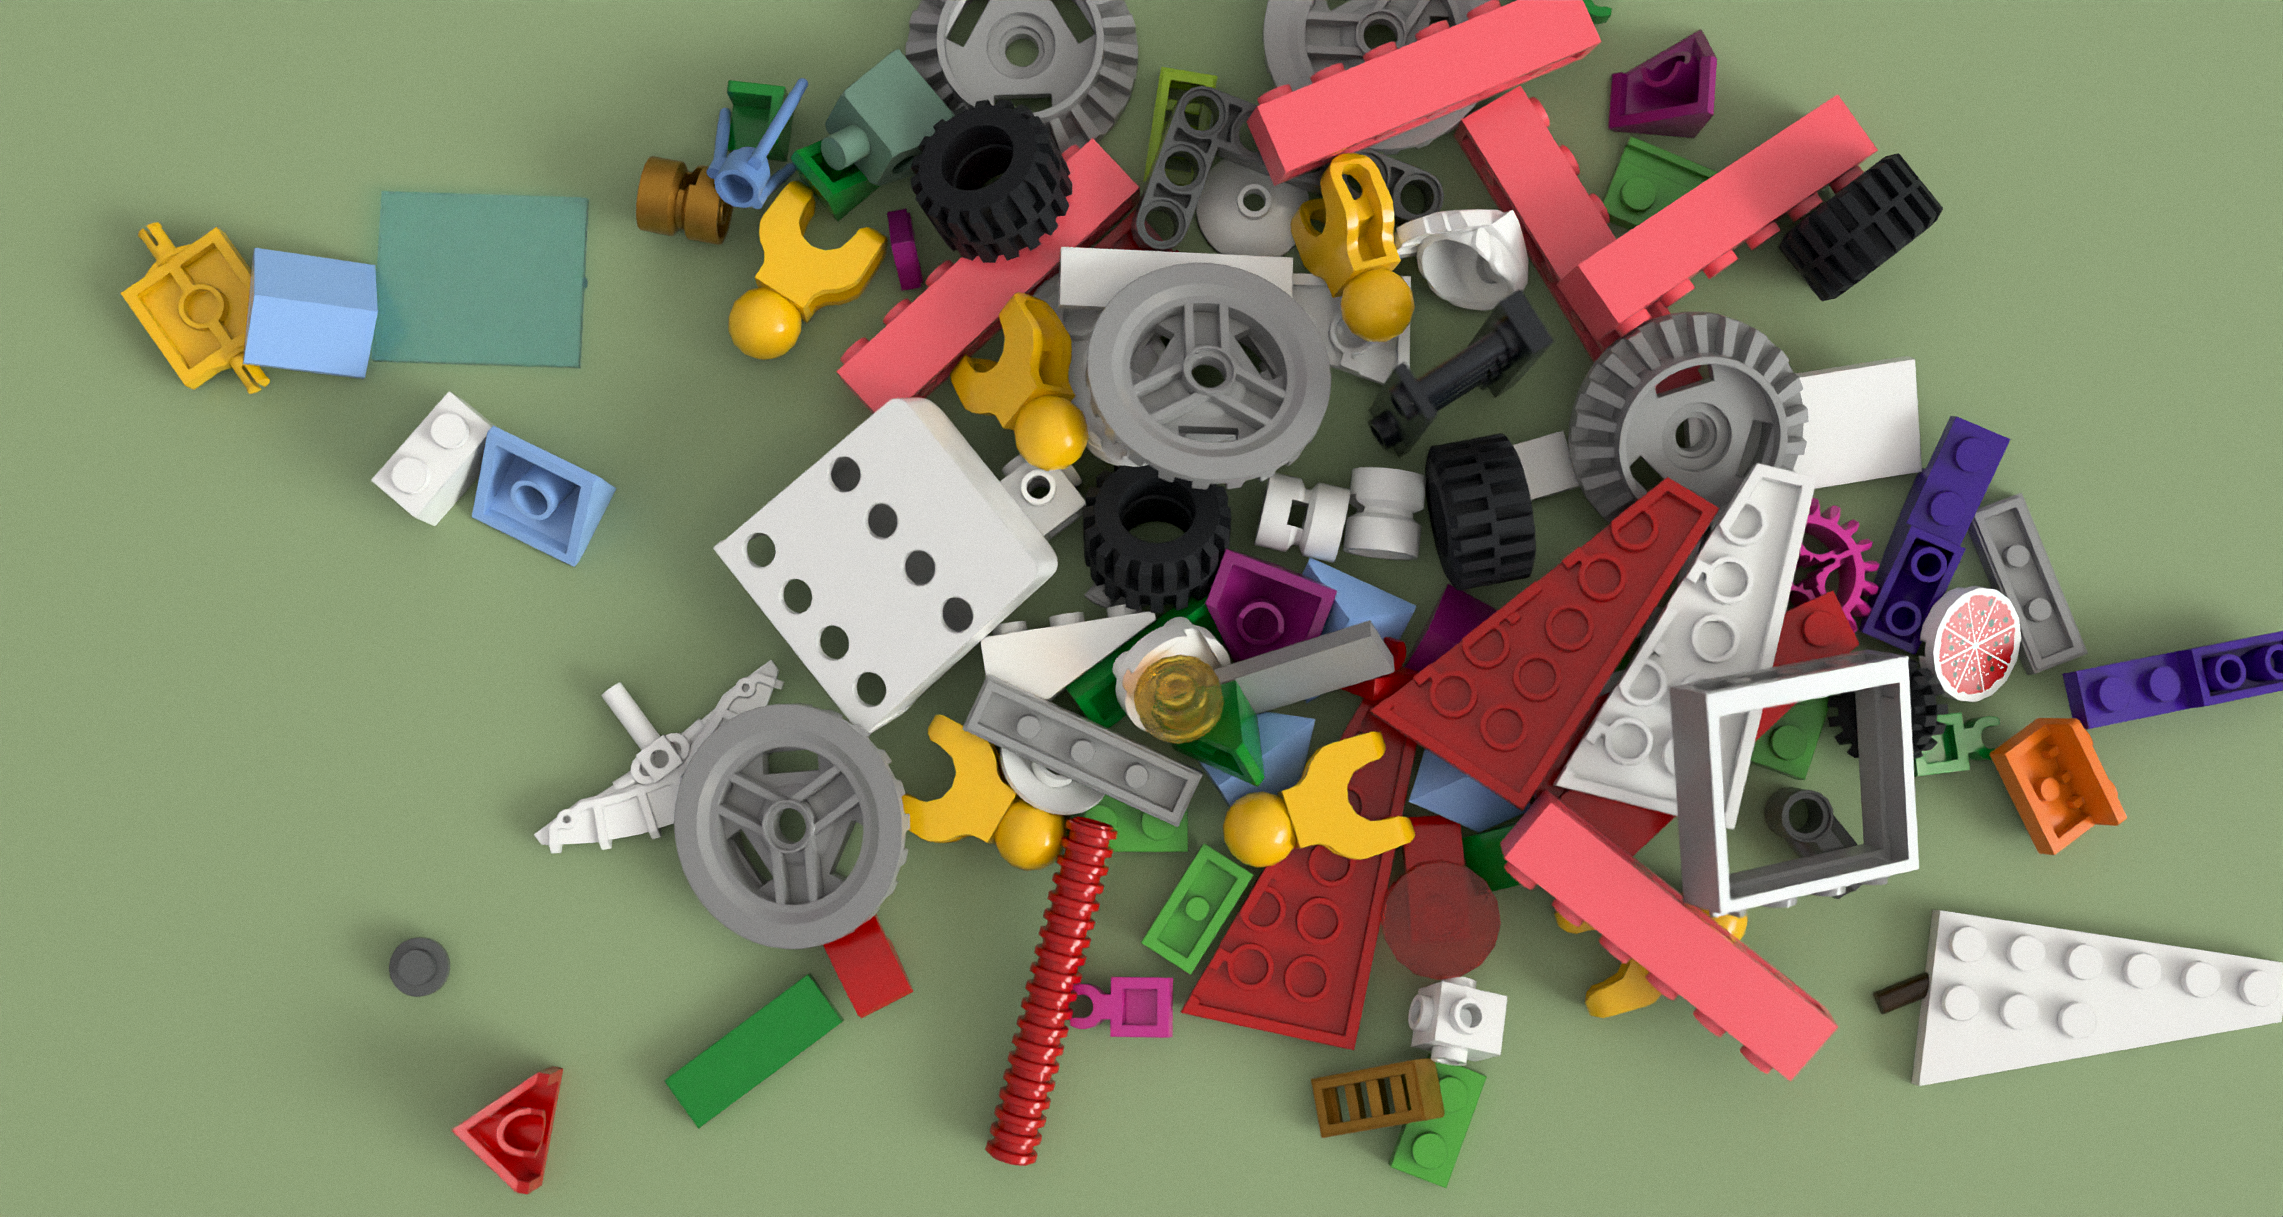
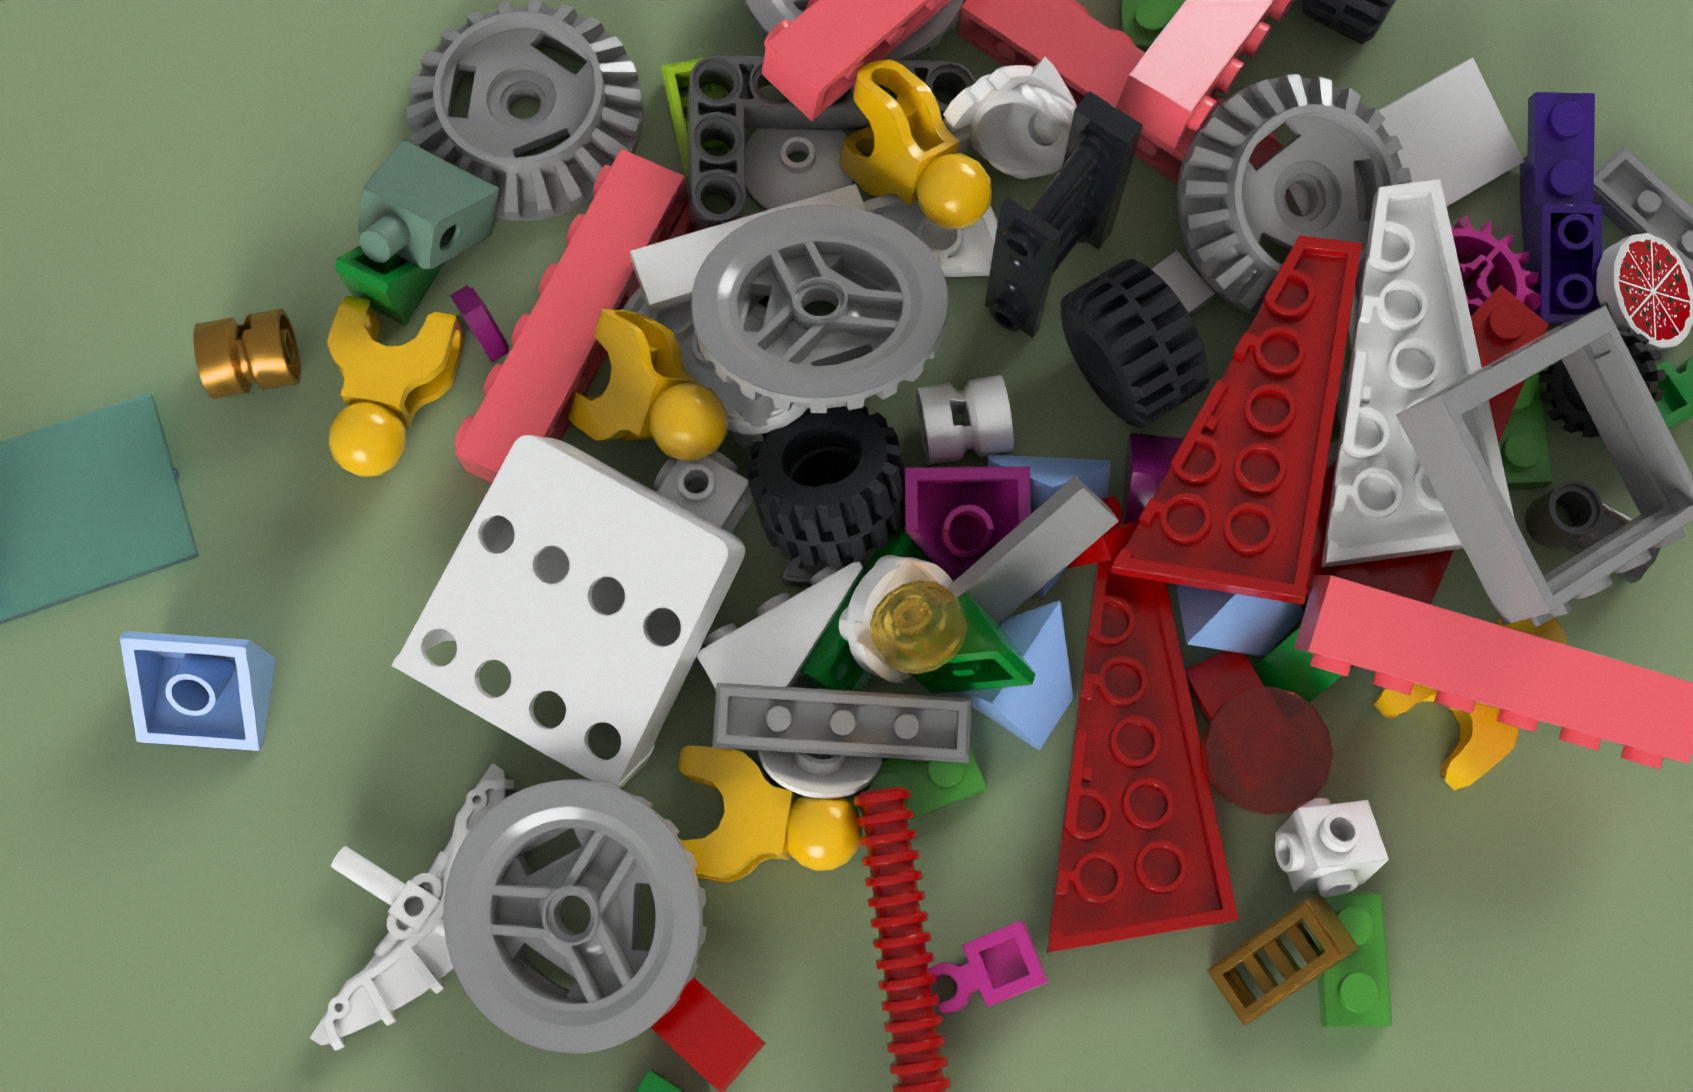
camera: 15 degrees left, 10 degrees down
(437, 460) = (79, 694): white brick -> none
(745, 173) = (295, 297): medium blue plant -> none
(752, 114) = (294, 255): green panel -> none
(974, 150) = (539, 215): black tyre -> none
(1197, 908) = (1020, 841): bright green plate -> none
(1316, 810) = (1099, 691): yellow piece -> none
(1384, 513) = (1040, 380): white wheel -> none

